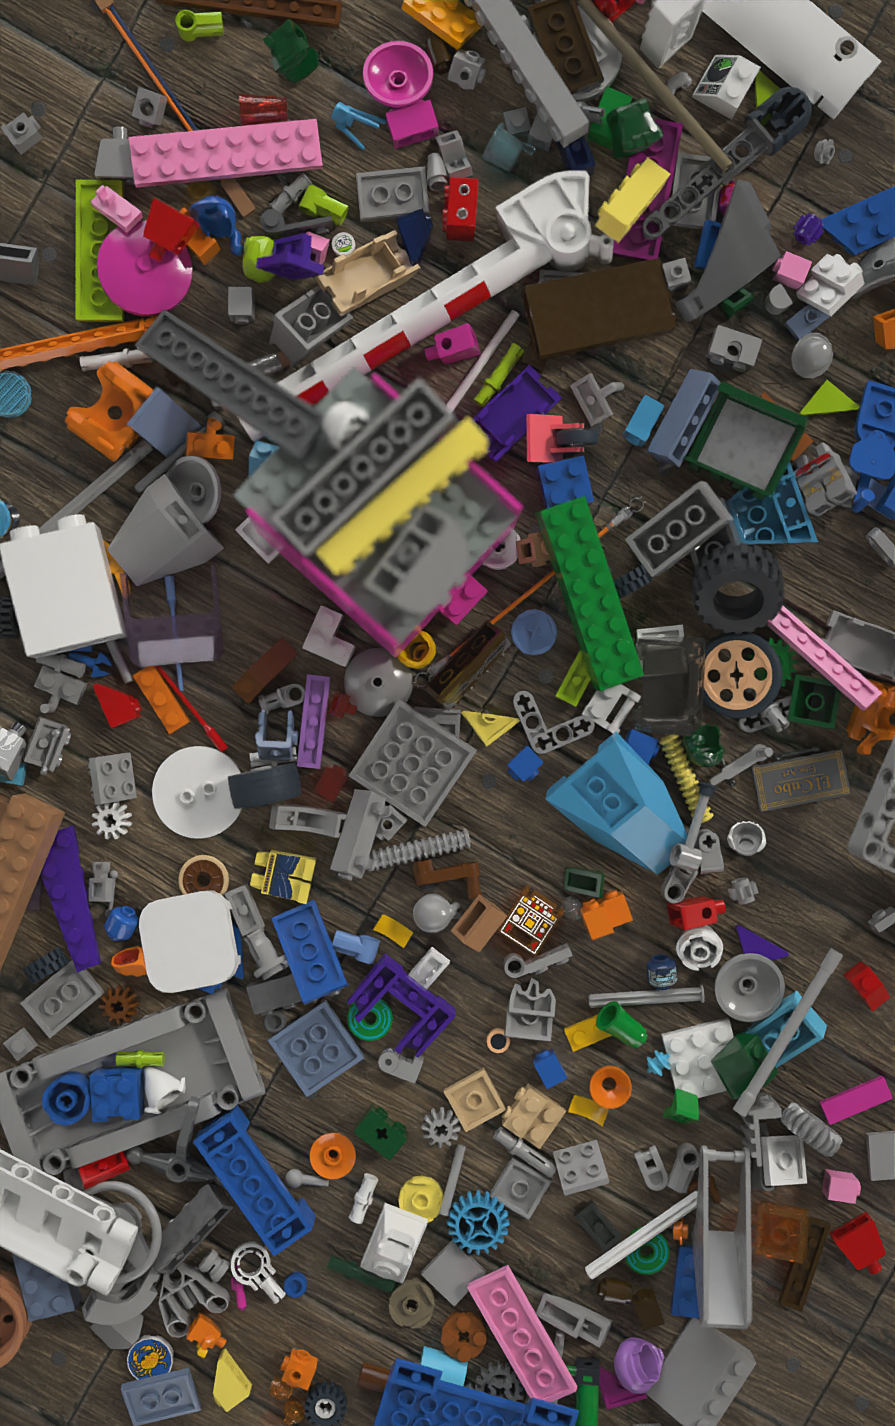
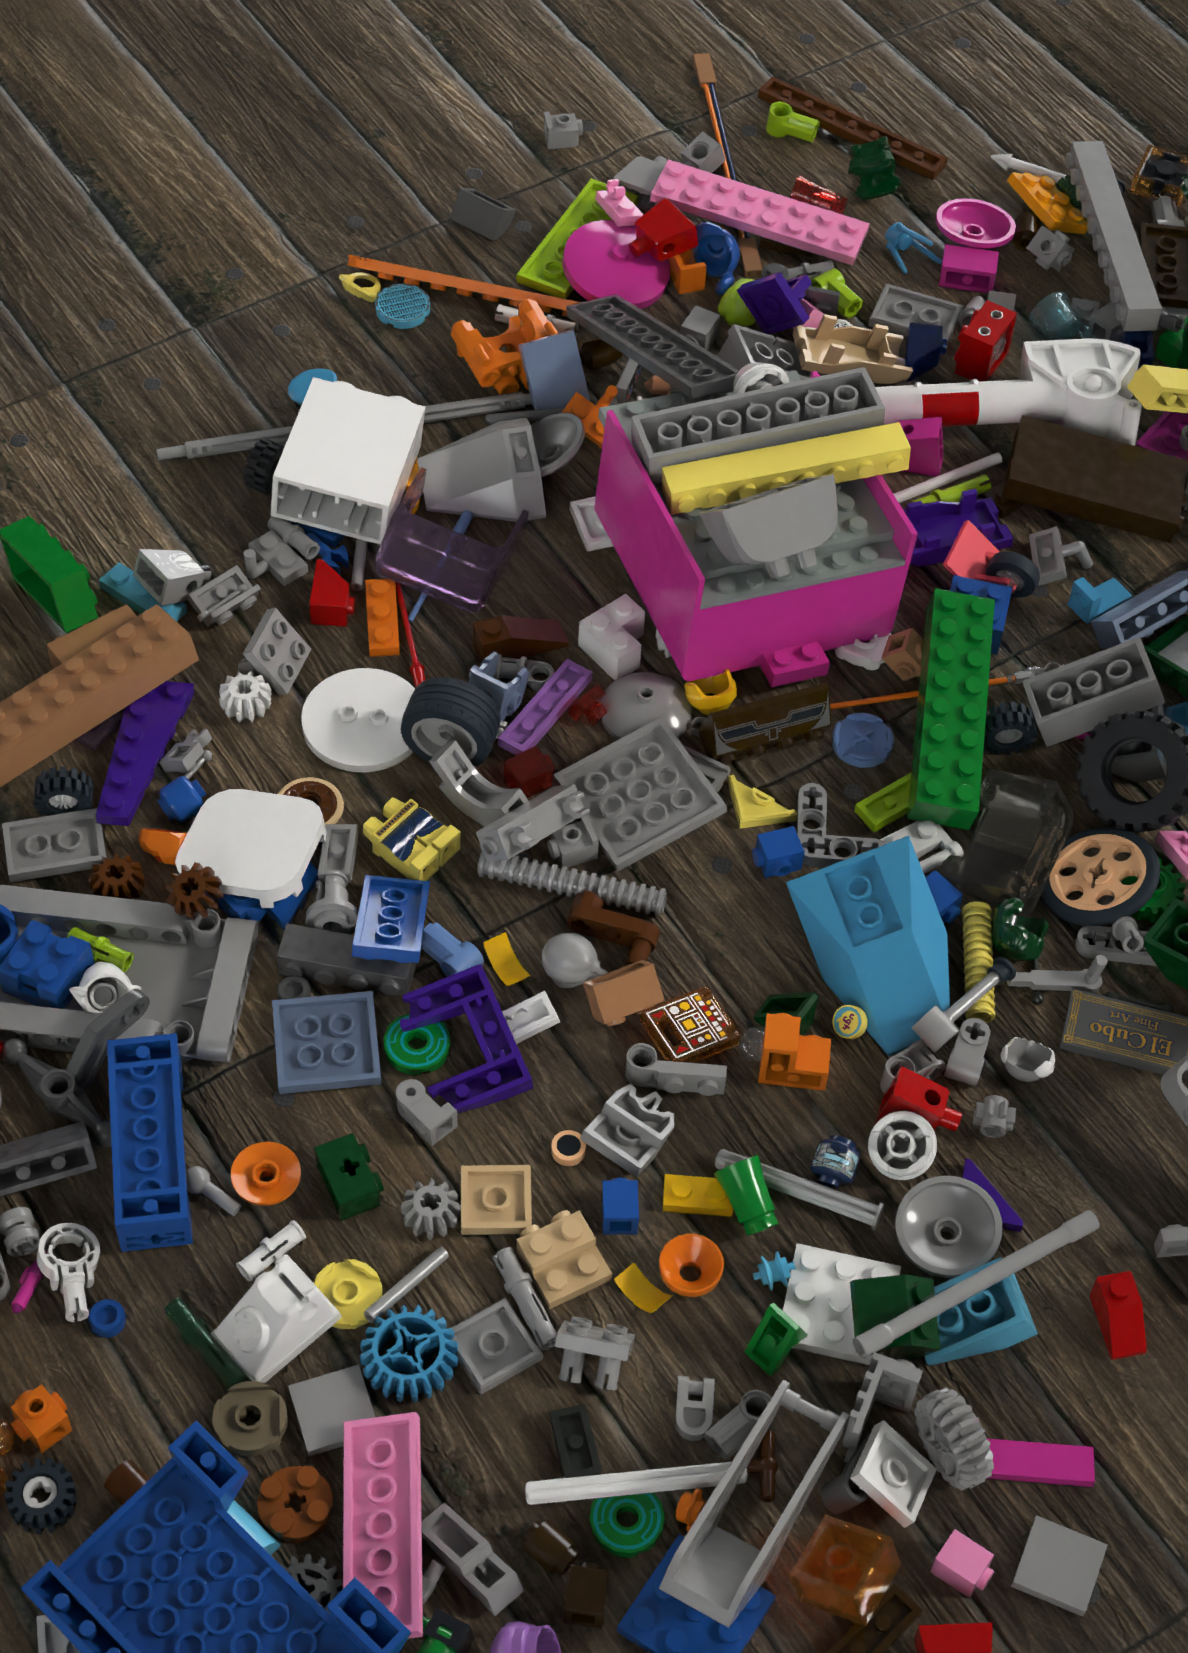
camera: 25 degrees right, 35 degrees down
(178, 1007) = (194, 891): none -> reddish brown gear
(626, 866) = (850, 1021): none -> light yellow tile

